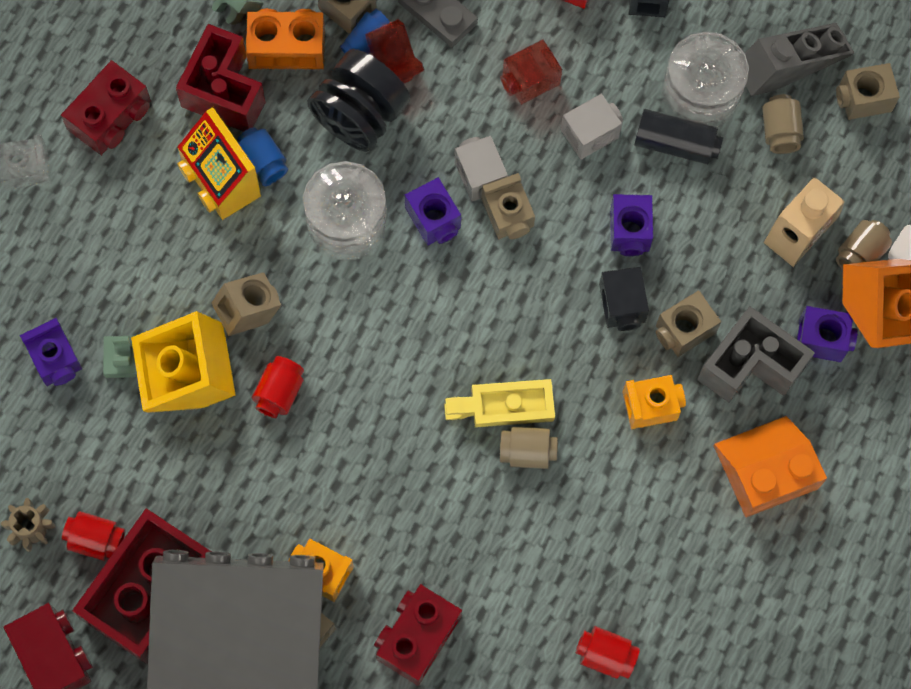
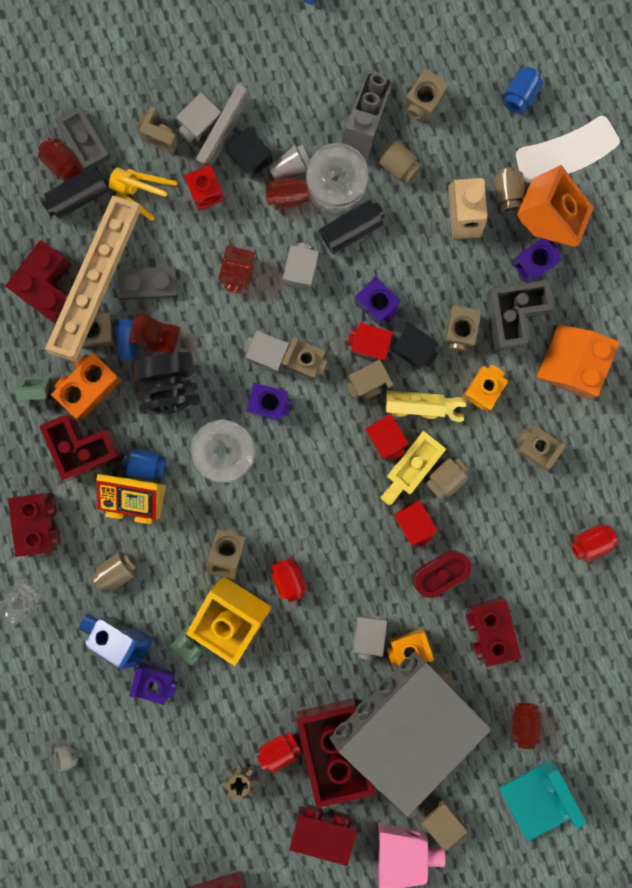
camera: 40 degrees left, 15 degrees up
(64, 271) = (116, 640): none -> blue torso
(130, 221) = (115, 572): none -> dark tan brick
(296, 515) = (369, 636): none -> light grey brick
(426, 523) = (441, 573): none -> dark red brick
(452, 456) = (415, 524): none -> red brick
(509, 351) = (387, 438): none -> red brick
(547, 284) = (368, 381): none -> dark tan brick
(579, 361) = (423, 404): none -> light yellow plate
(585, 252) = (369, 342): none -> red brick
(644, 520) = (545, 458): none -> dark tan brick
(646, 52) = (287, 193): none -> clear red brick
(675, 29) = (291, 163): none -> light grey cone

